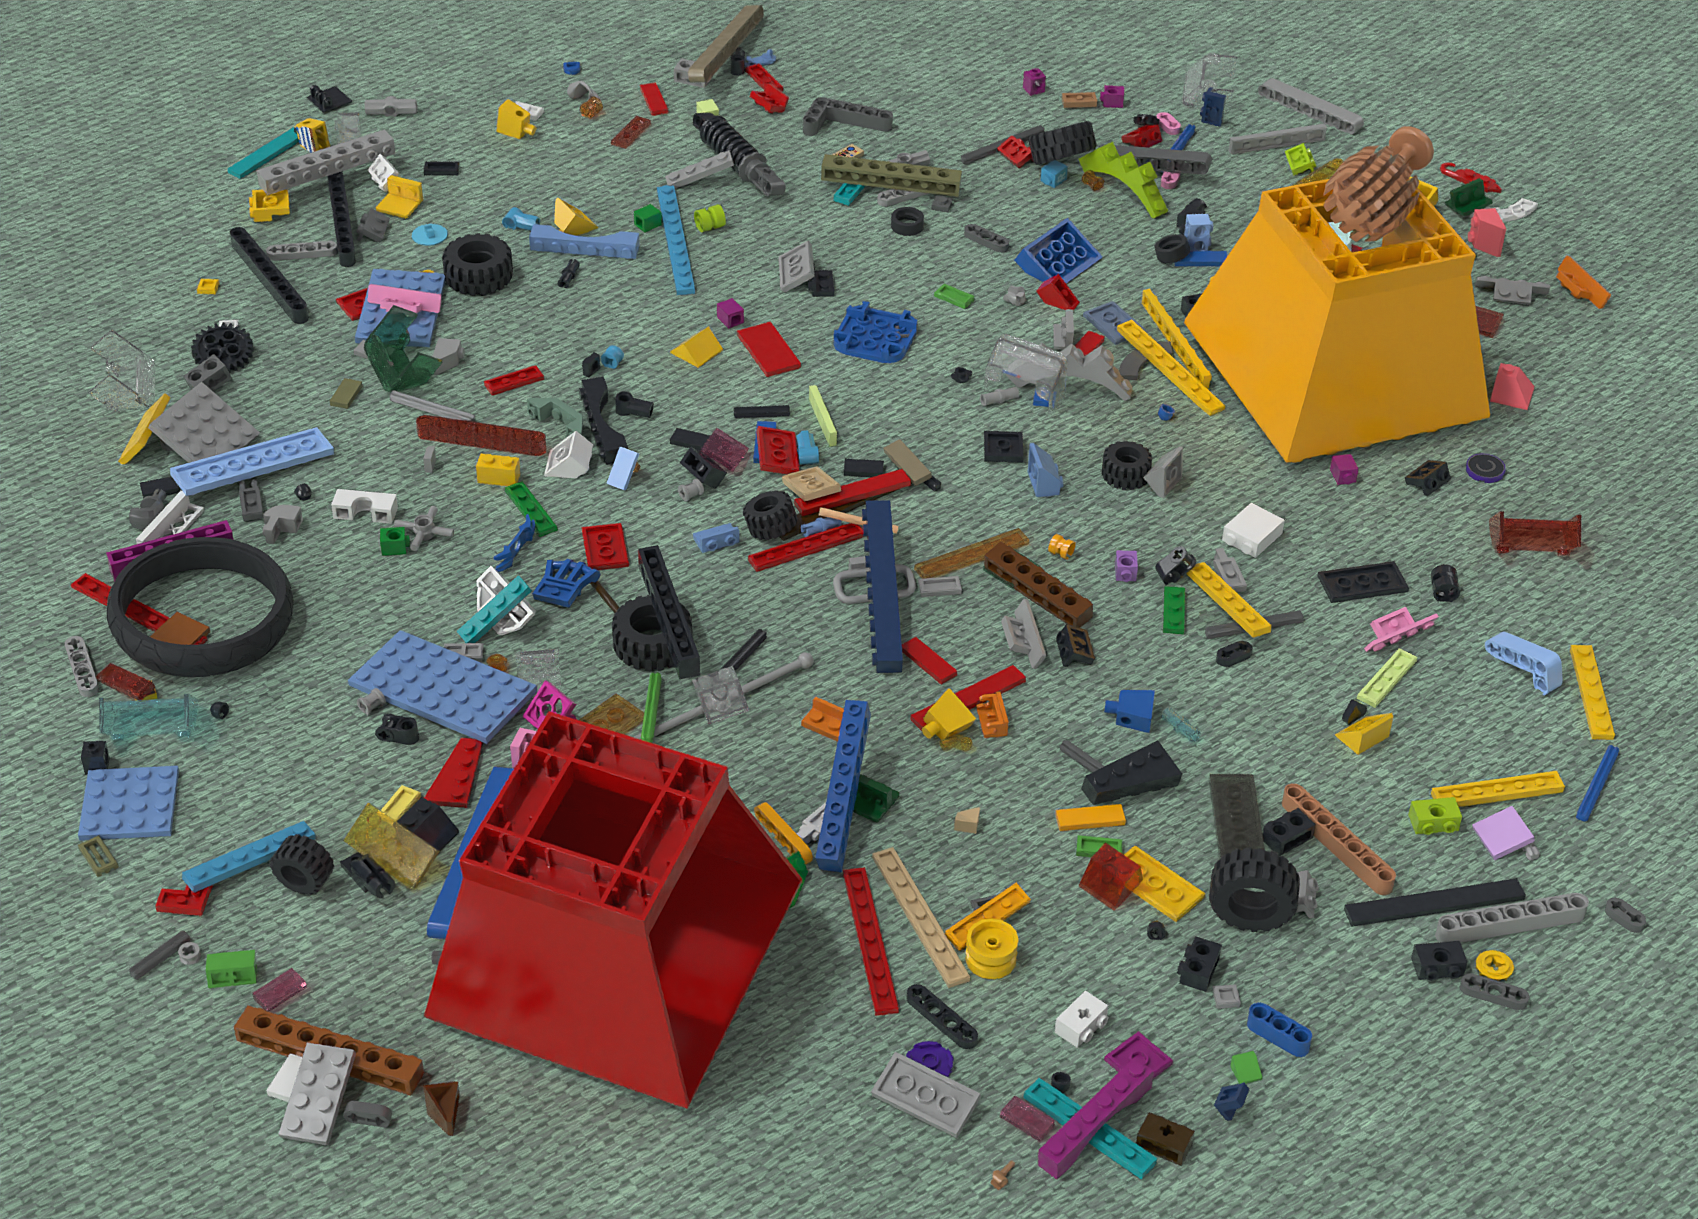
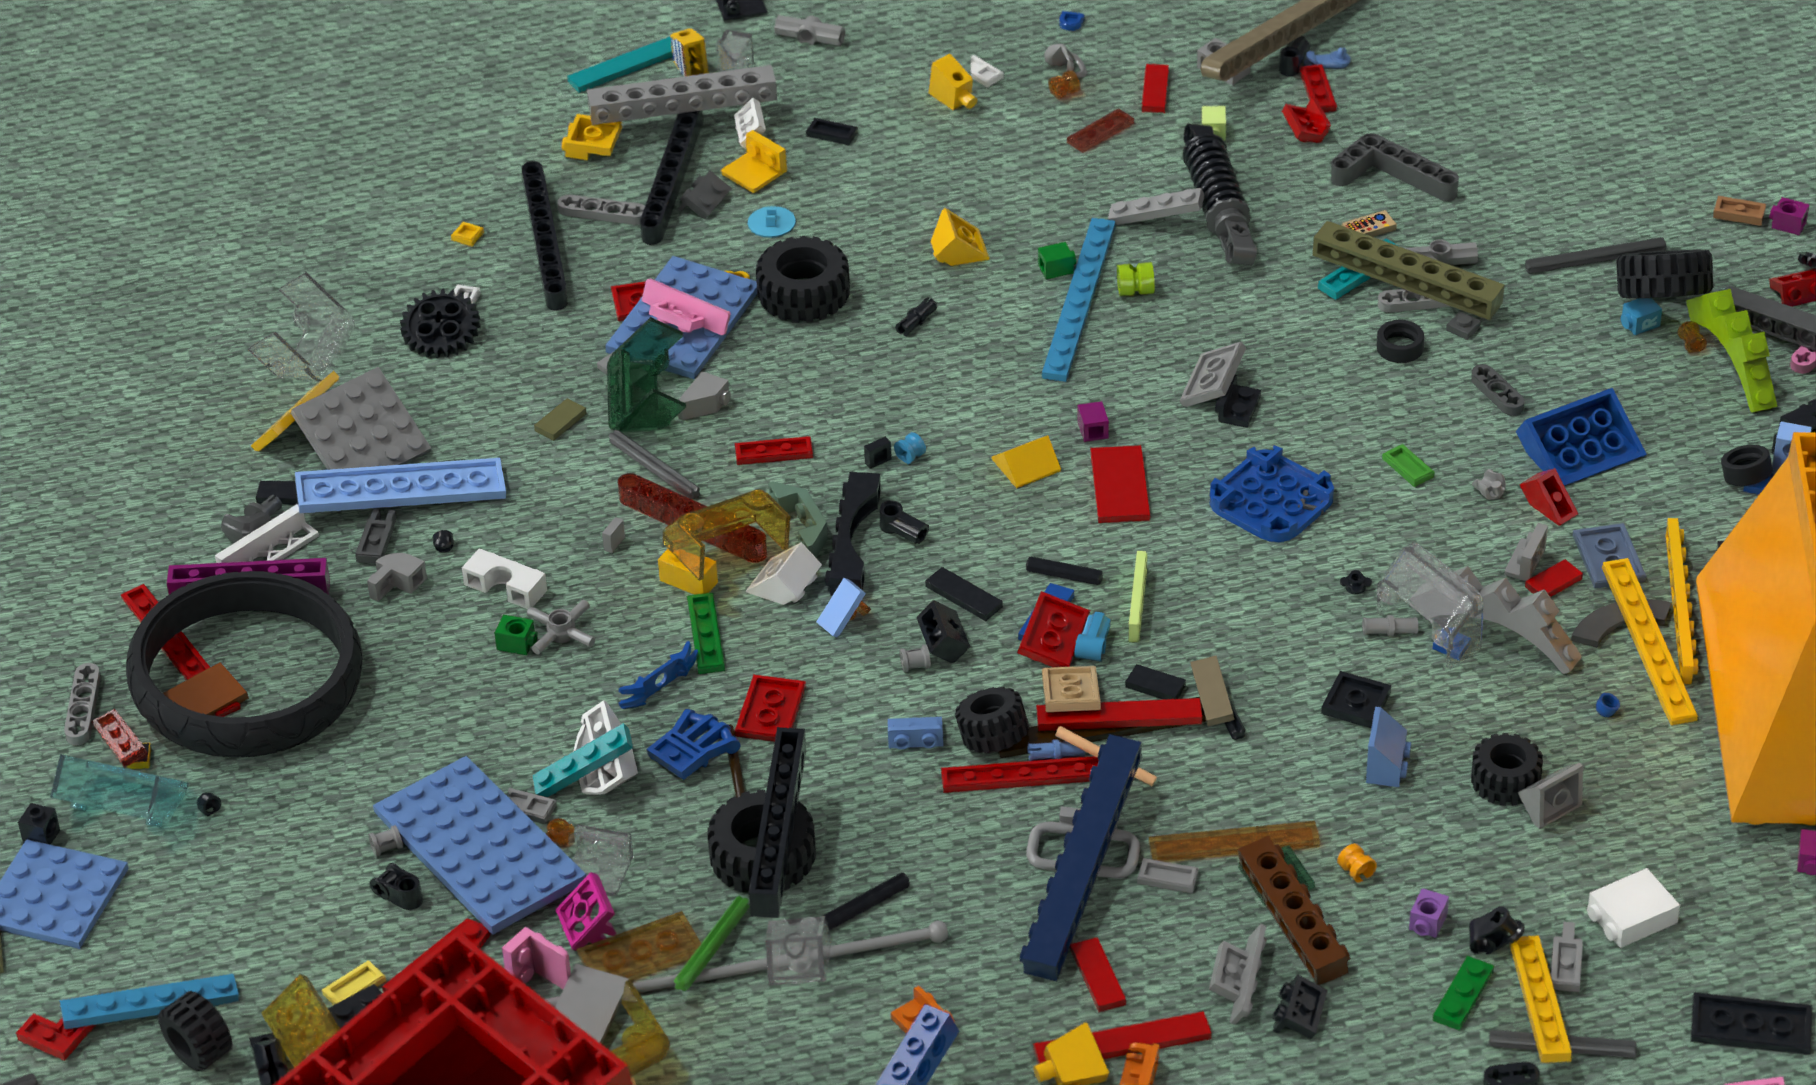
camera: 25 degrees right, 0 degrees up
(210, 372) = (403, 358): dark grey brick -> none
(497, 443) = (685, 534): none -> clear yellow windscreen
(517, 218) = (889, 225): dark azure piece -> none
(552, 240) = (999, 291): medium blue arch -> none
(724, 449) = (984, 613): clear pink tile -> none
(1015, 151) = (1603, 269): red bracket -> none
(1034, 81) = (1687, 170): magenta brick -> none

